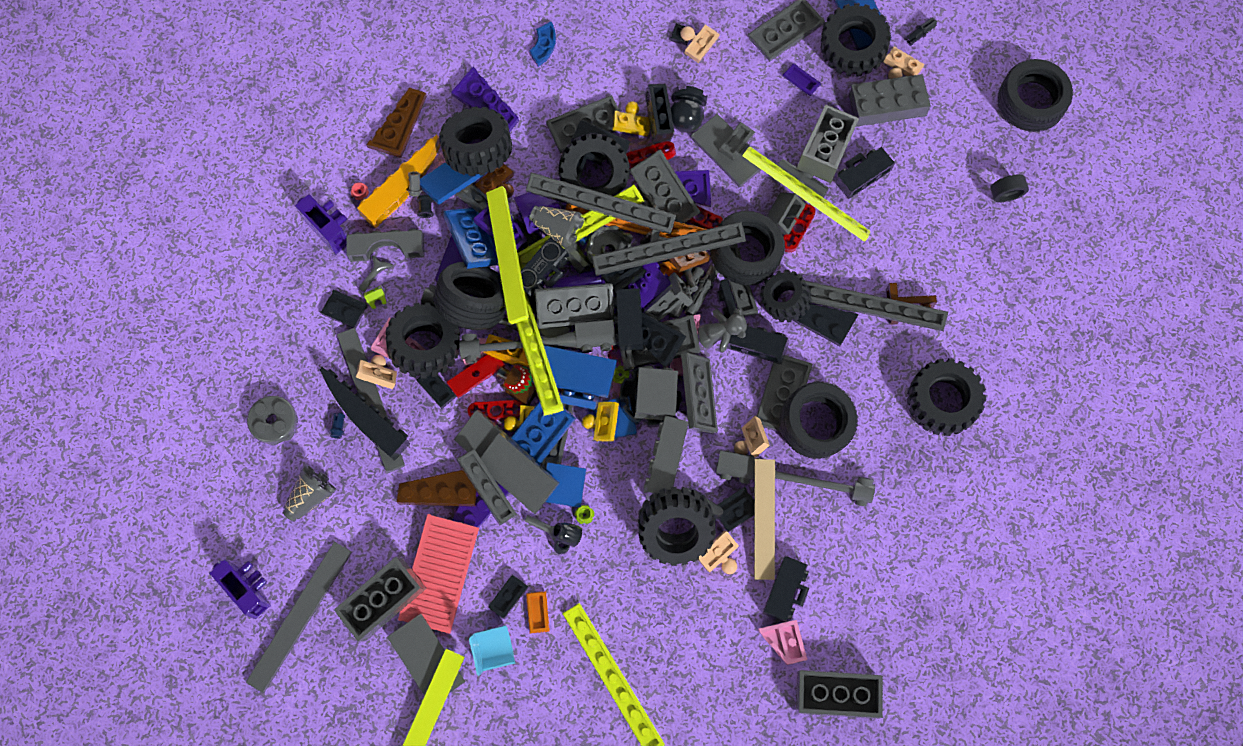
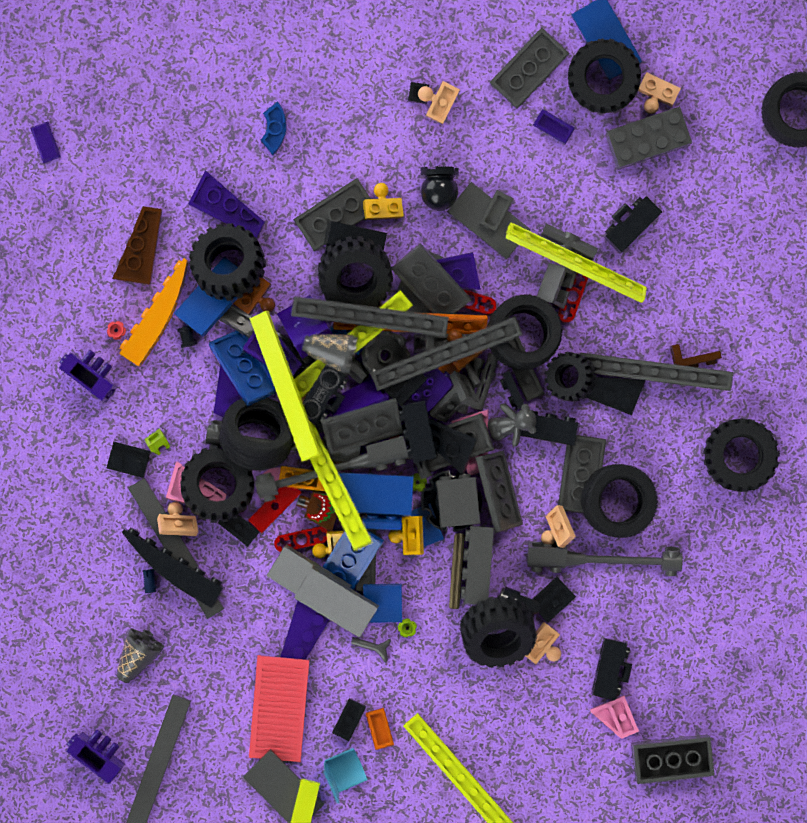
camera: 10 degrees left, 15 degrees up
(281, 429) = (94, 577): dark grey plate -> none
(334, 25) = (45, 142): none -> dark purple tile
(362, 246) = (132, 391): dark grey arch -> none
(377, 268) = (153, 408): dark grey piece -> none
(380, 599) = (230, 744): dark grey brick -> none
(414, 184) = (173, 322): dark grey pin -> none
(438, 490) = (269, 627): reddish brown wing -> none
(486, 487) = (309, 620): dark grey tile -> none
(566, 534) = (394, 652): black piece -> none
(636, 154) = (409, 234): red beam -> none
(644, 466) = (456, 574): none -> dark tan axle
(659, 113) = (411, 196): black piece -> none
(764, 519) = (580, 605): tan tile -> none
(827, 143) = (591, 203): dark grey brick -> none
(921, 31) = (672, 49): black axle -> none
(1009, 188) = (782, 220): black tyre -> none

